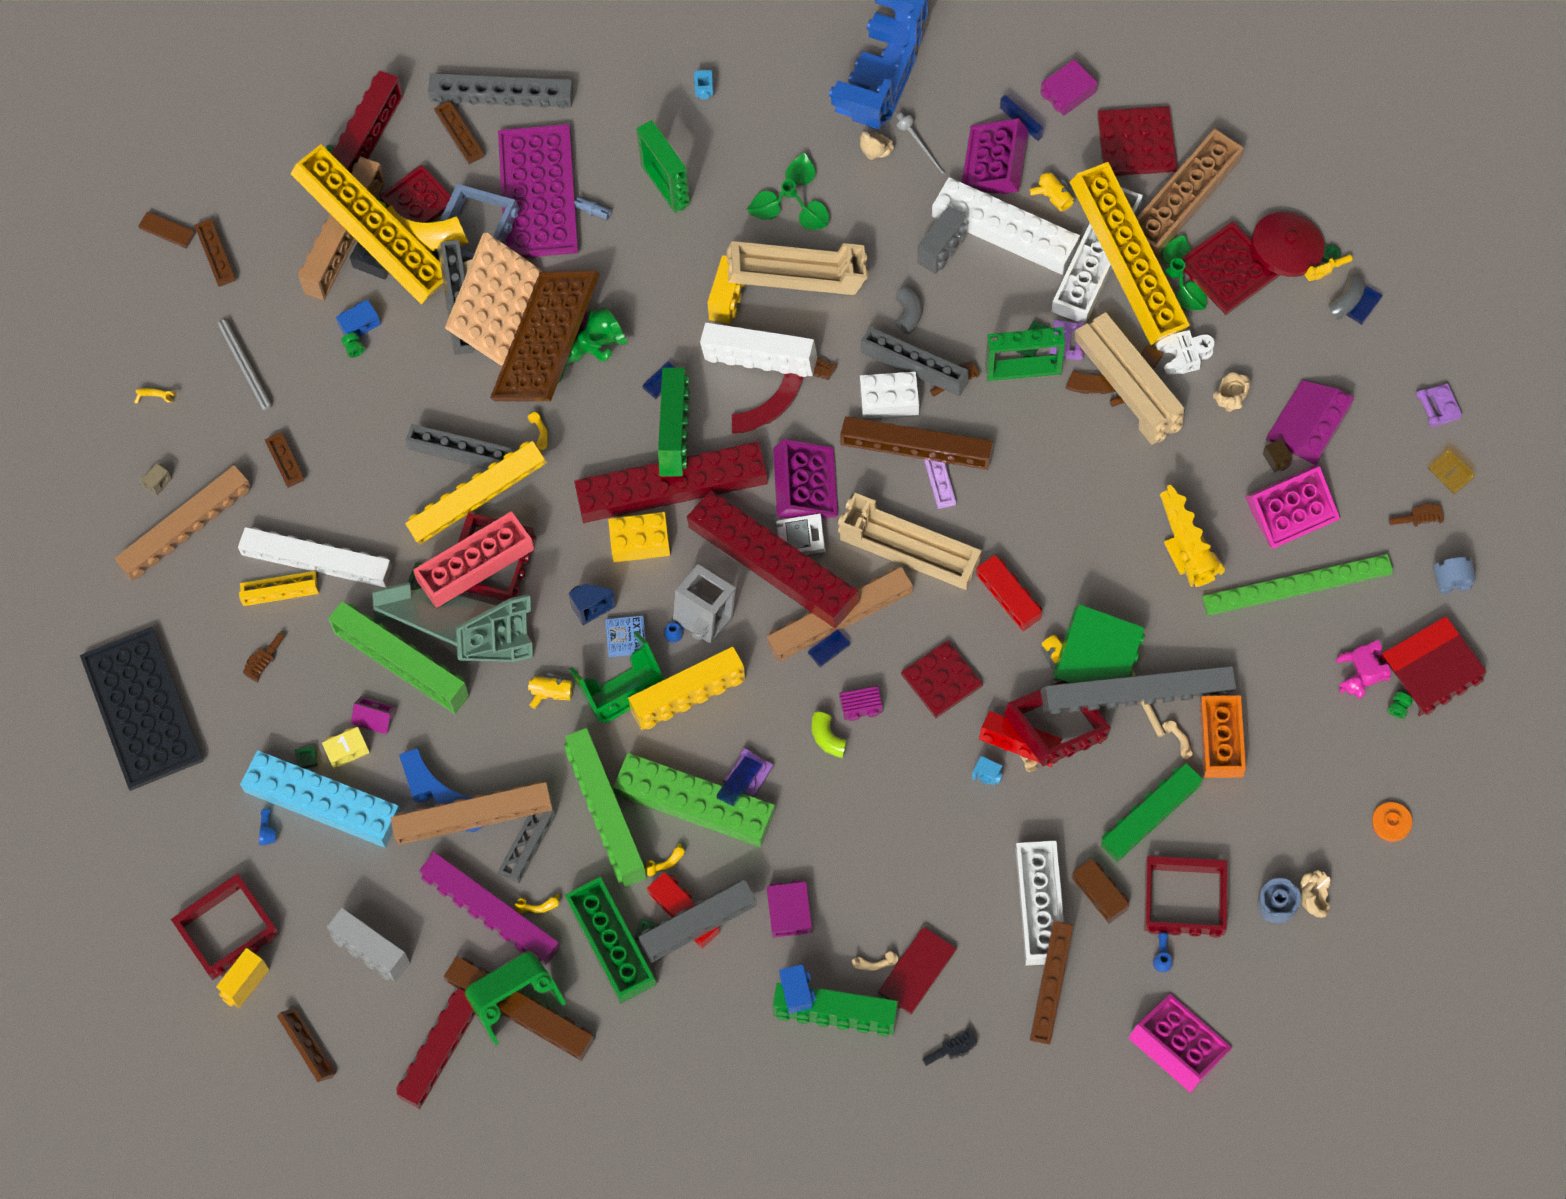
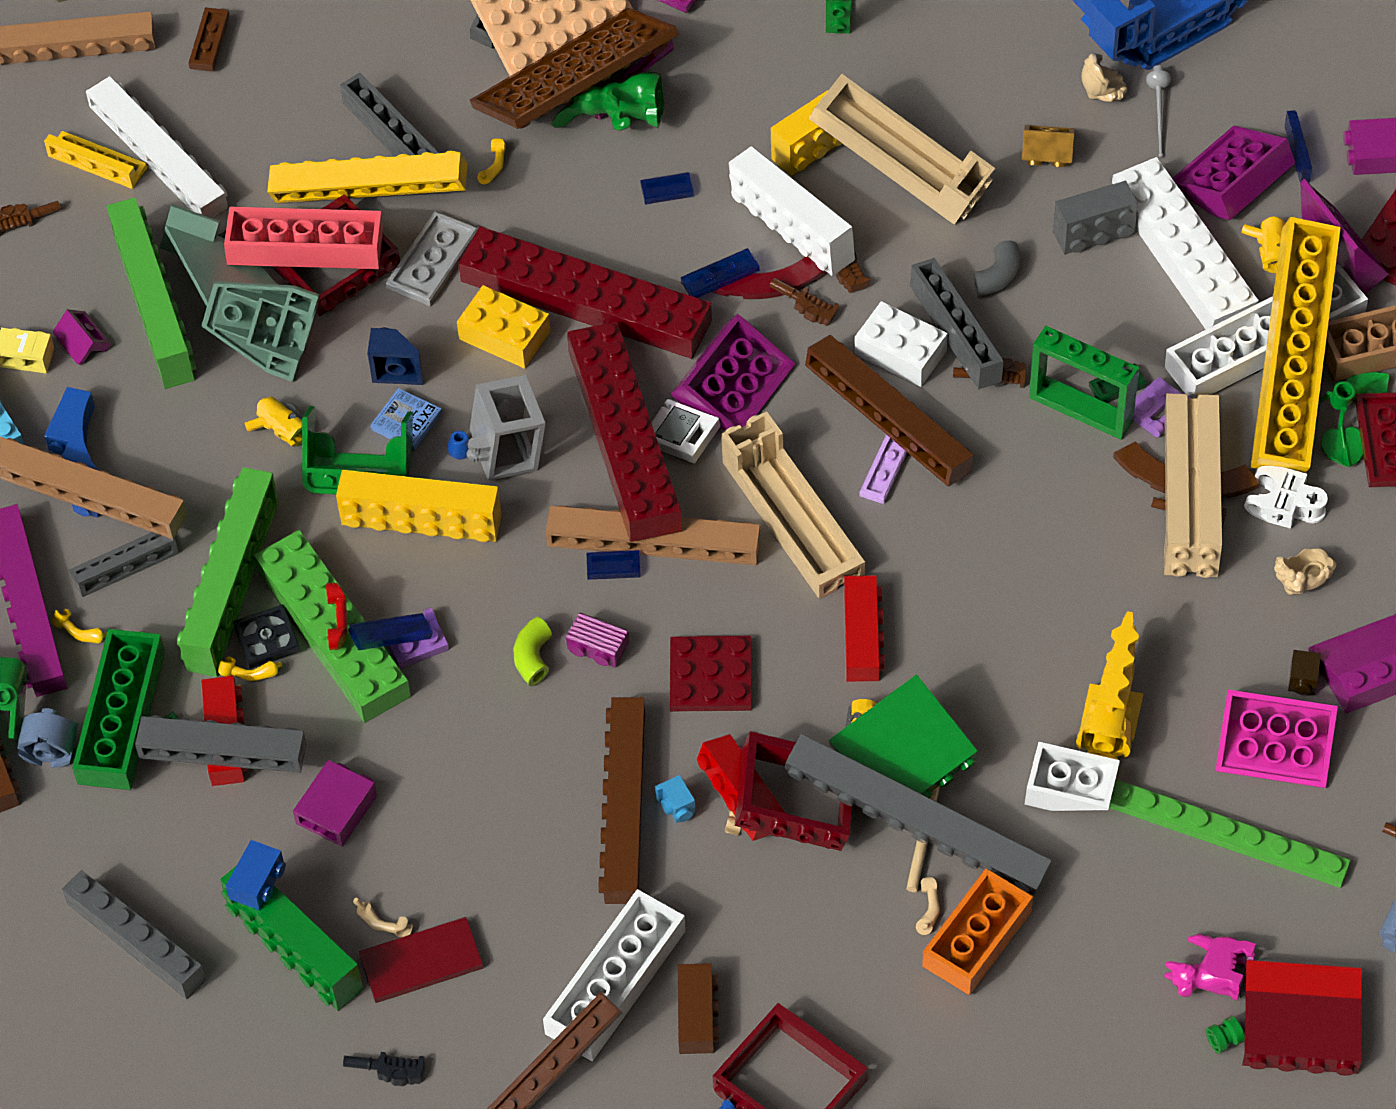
camera: 35 degrees right, 10 degrees down
(553, 519) = (431, 258): none -> light grey tile
(583, 989) = (47, 738): none -> sand blue brick
(658, 832) = (266, 636): none -> black piece
(673, 422) = (630, 225): green brick -> none
(690, 780) = (338, 635): none -> red bar
(737, 1073) = (134, 934): none -> dark grey brick
(743, 417) = (720, 273): none -> clear blue tile
(799, 171) = (976, 119): green plant -> none
(811, 404) = (806, 304): none -> reddish brown piece
(873, 206) = (1048, 145): none -> pearl gold slope
(957, 792) = (624, 799): none -> reddish brown brick
(1080, 159) = (1352, 252): none -> magenta slope
(1151, 812) = (827, 962): green brick -> none
(1203, 609) = (1070, 779): none -> white slope

